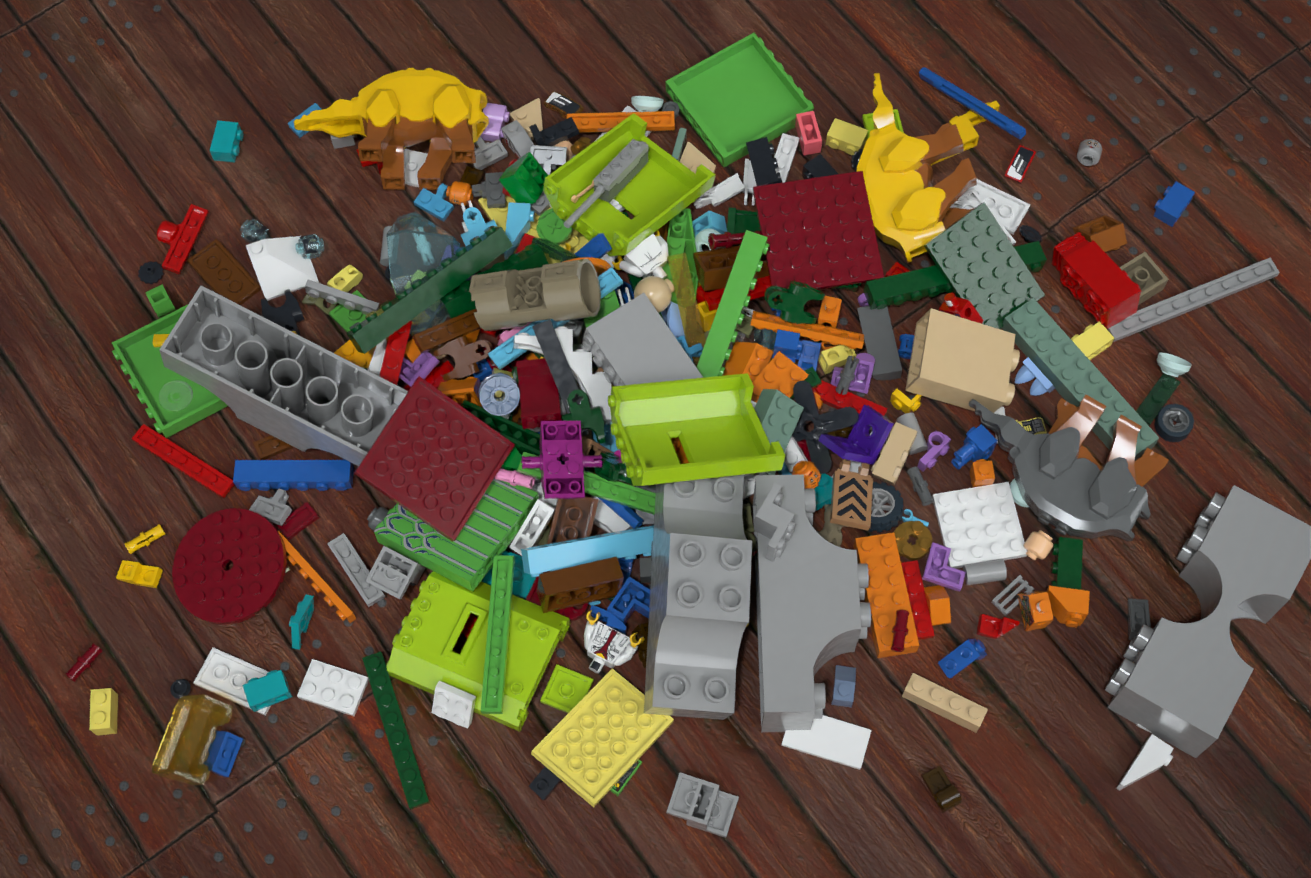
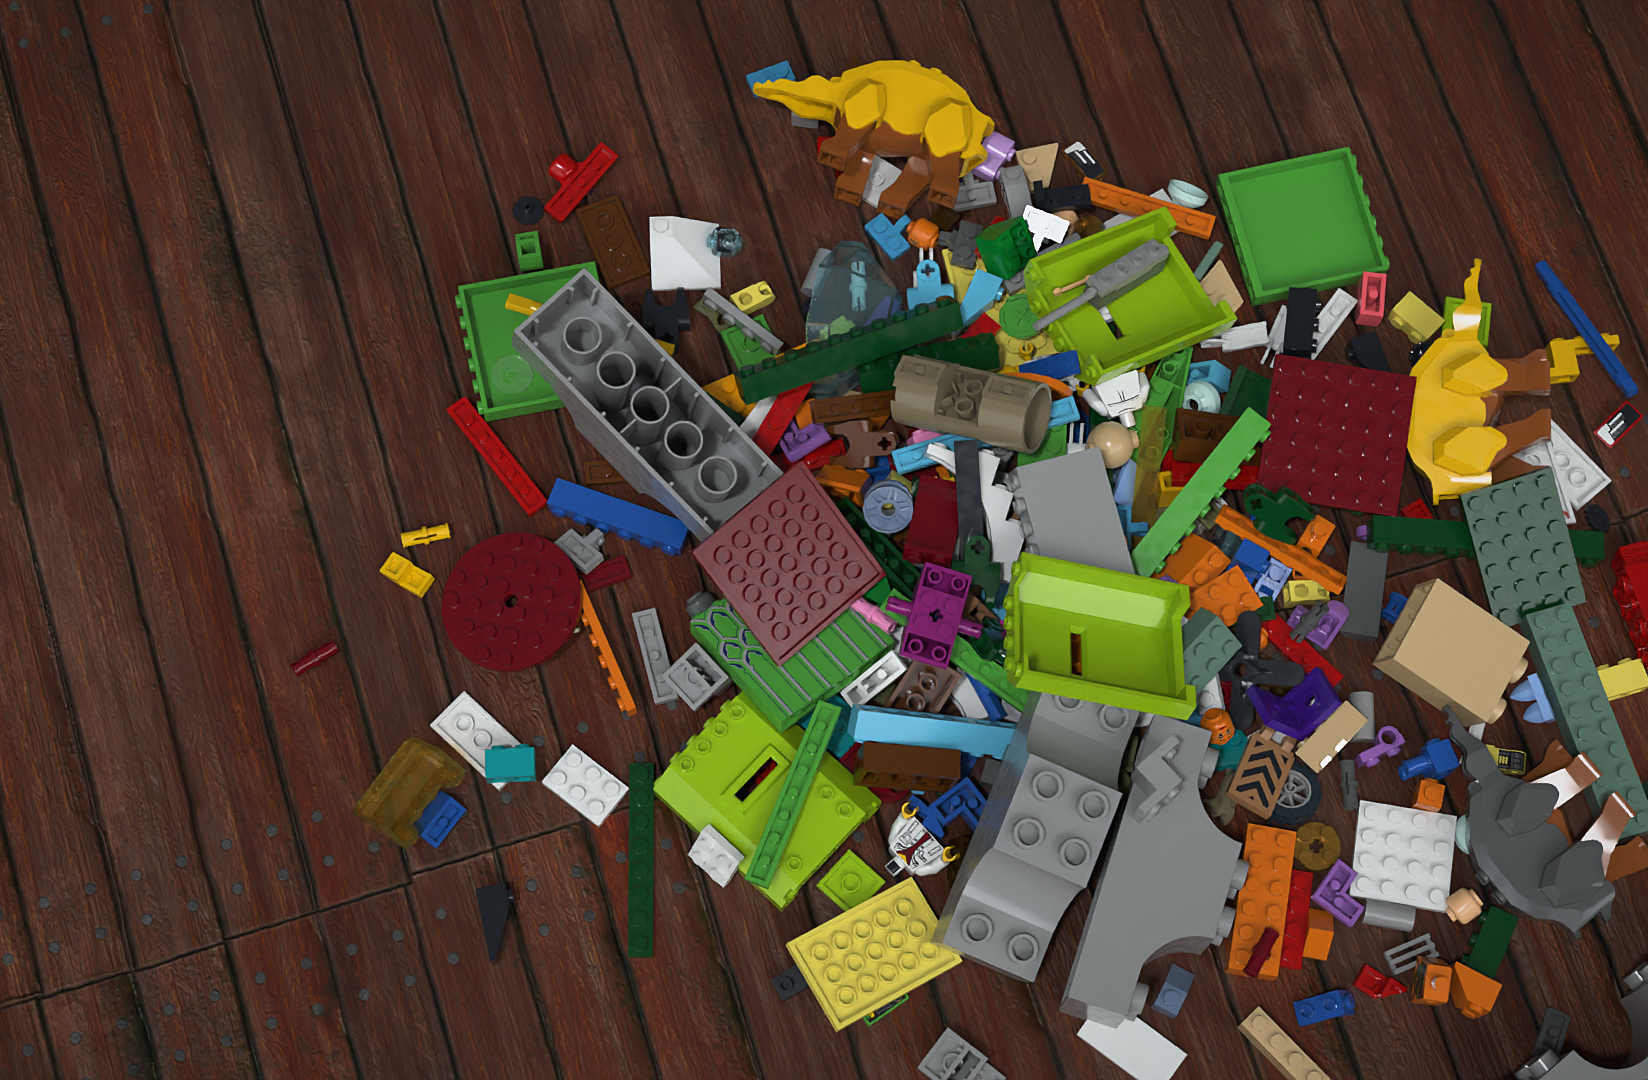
camera: 15 degrees right, 5 degrees up
(103, 711) = (320, 723): light yellow brick -> none
(180, 688) = (413, 726): black plate -> none
(226, 141) = (665, 75): teal brick -> none
(253, 231) = (664, 201): clear light blue head -> none
(292, 812) = (495, 914): none -> black slope
(300, 621) = (572, 696): teal wing -> none
(554, 250) = (1013, 350): clear green plate -> none
(671, 106) = (1213, 208): dark grey tile -> none
(726, 239) = (1225, 405): dark red pin -> none
(903, 403) = (1362, 674): yellow bracket -> none
(912, 518) = (1326, 821): medium azure hand -> none
(960, 307) = (1474, 587): red torso -> none

